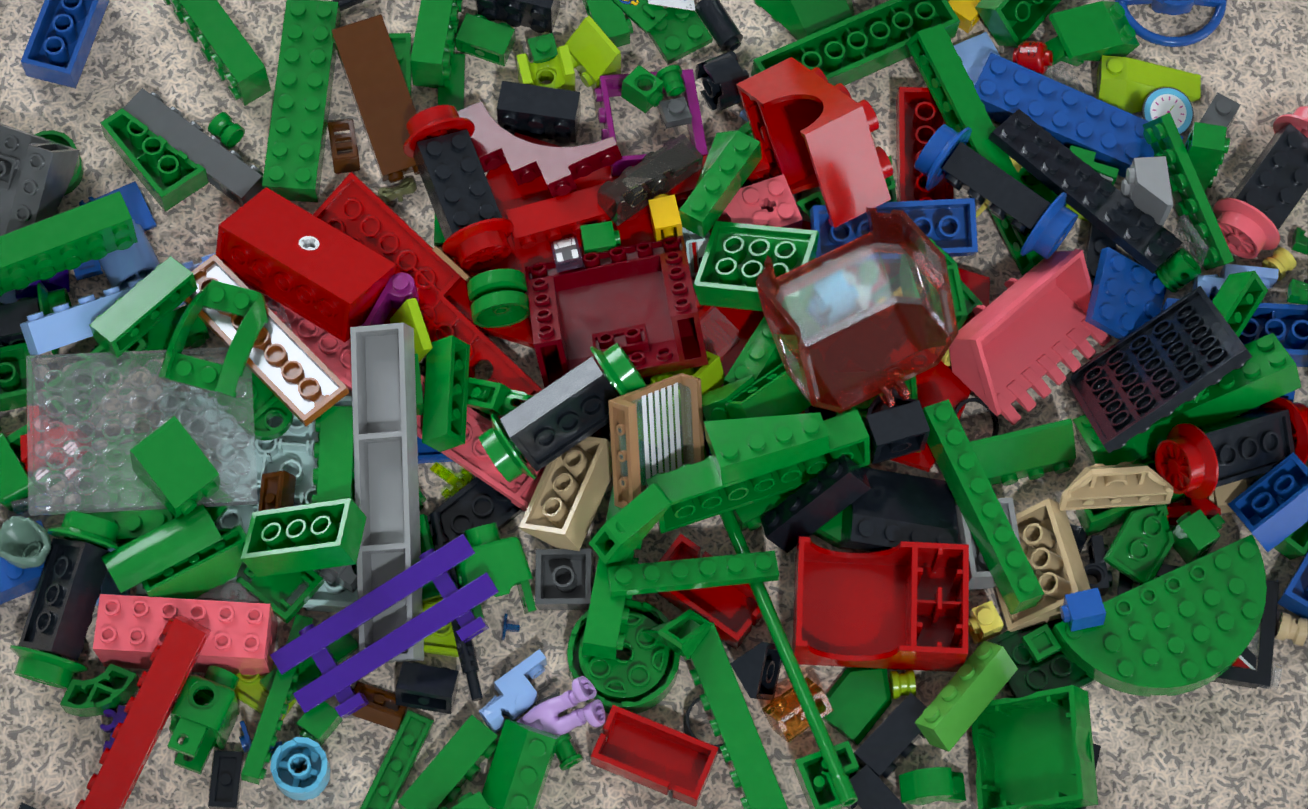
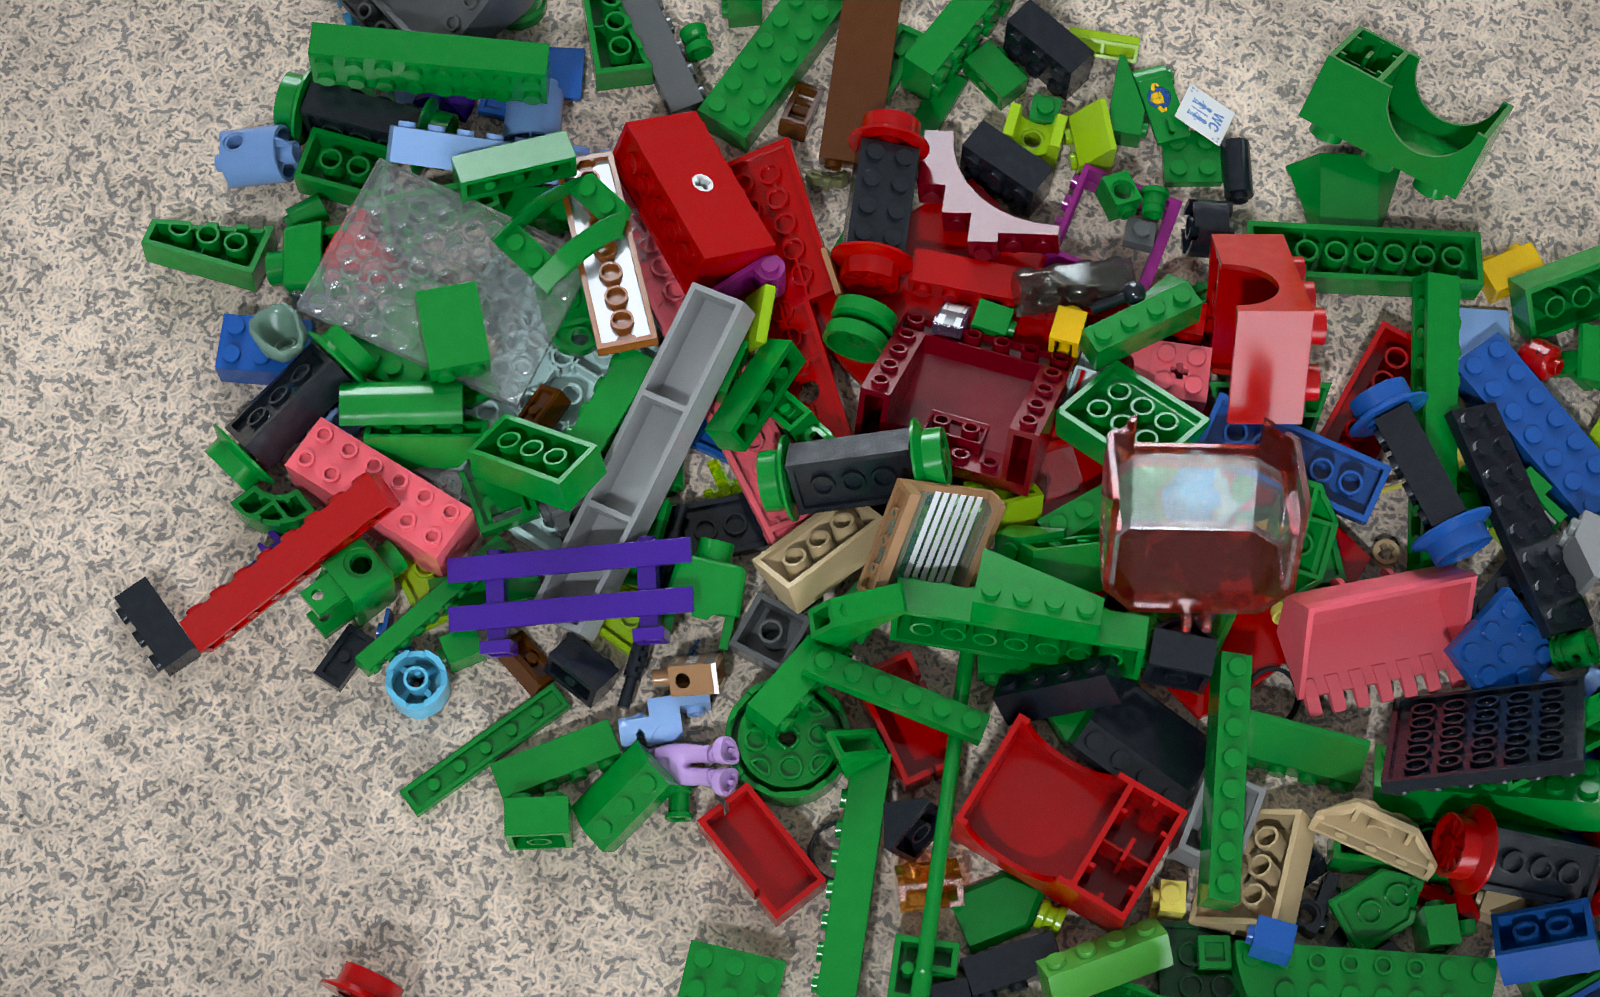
camera: 30 degrees right, 0 degrees up
(527, 637) = (704, 671): none -> medium nougat torso
(700, 163) = (1131, 294): none -> black bar
(989, 269) = (1386, 544): none -> tan bush

